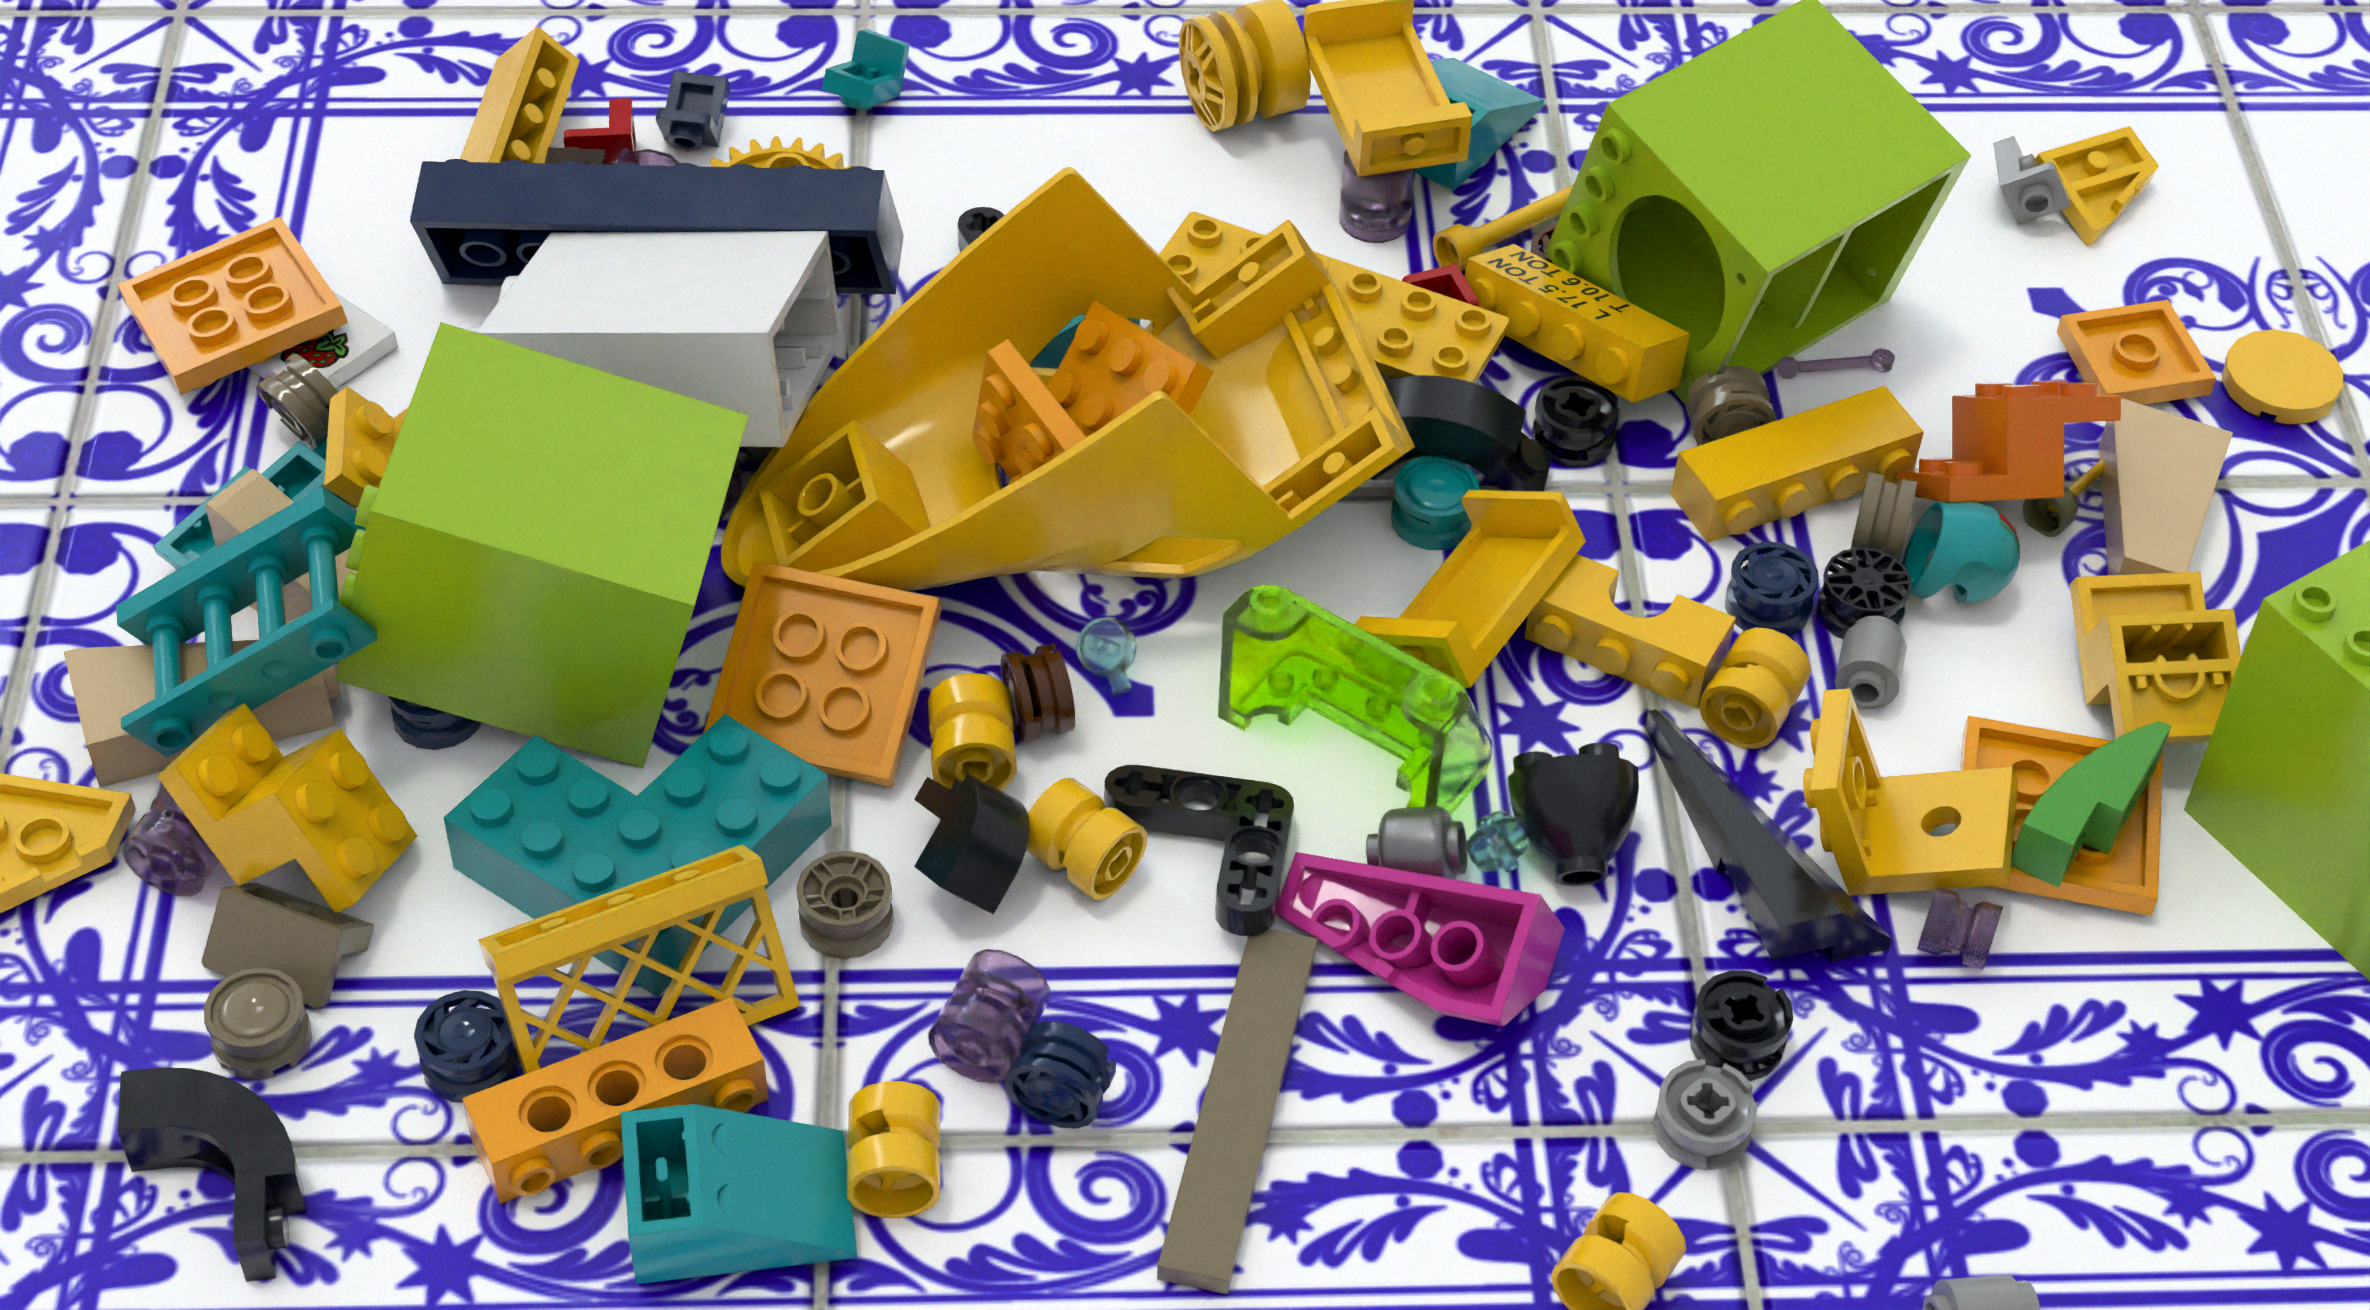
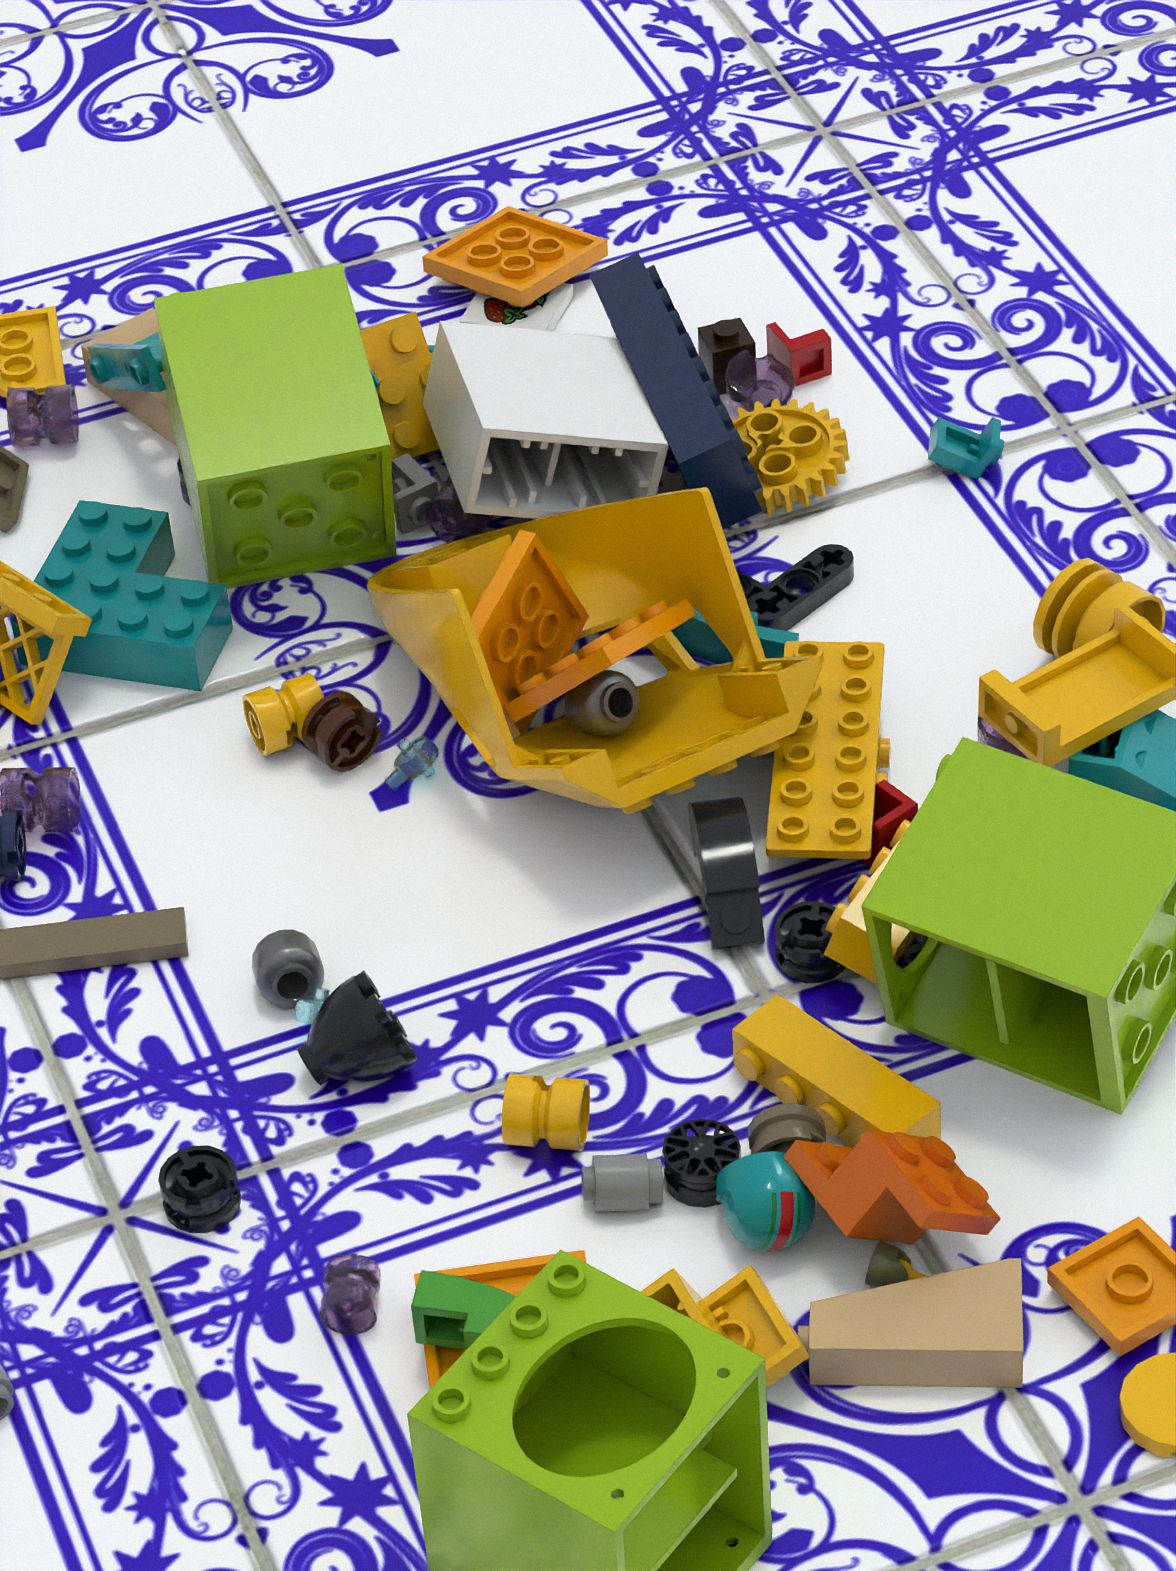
camera: 75 degrees right, 5 degrees down
(279, 808) = (60, 436): yellow bracket -> none
(300, 399) = (433, 306): dark tan wheel -> none
(522, 102) = (782, 298): yellow brick -> none
(694, 110) = (861, 382): dark blue bracket -> none
(828, 668) = (301, 621): light orange plate -> none
(845, 904) = (116, 710): dark tan wheel -> none
(976, 841) = (180, 737): black brick -> none
(1092, 841) = (215, 796): yellow wheel -> none
(1230, 820) = (278, 870): black beam -> none
(1297, 655) = (413, 906): clear neon green windscreen -> none
(1429, 504) = (667, 886): teal wheel -> none
(1436, 938) = (206, 1006): dark pink wedge -> none
(1486, 583) = (480, 917): yellow panel -> none
(1663, 653) = (583, 995): yellow arch -> none
(1705, 1115) = (107, 1189): light grey wheel -> none
(1728, 404) = (866, 1019): dark tan wheel -> none
(1772, 589) = (675, 1099): dark blue wheel -> none
(1781, 886) = (359, 1174): black wedge -> none
(1880, 360) = (1026, 1121): clear purple hinge -> none
(1884, 823) = (436, 1218): yellow bracket -> none

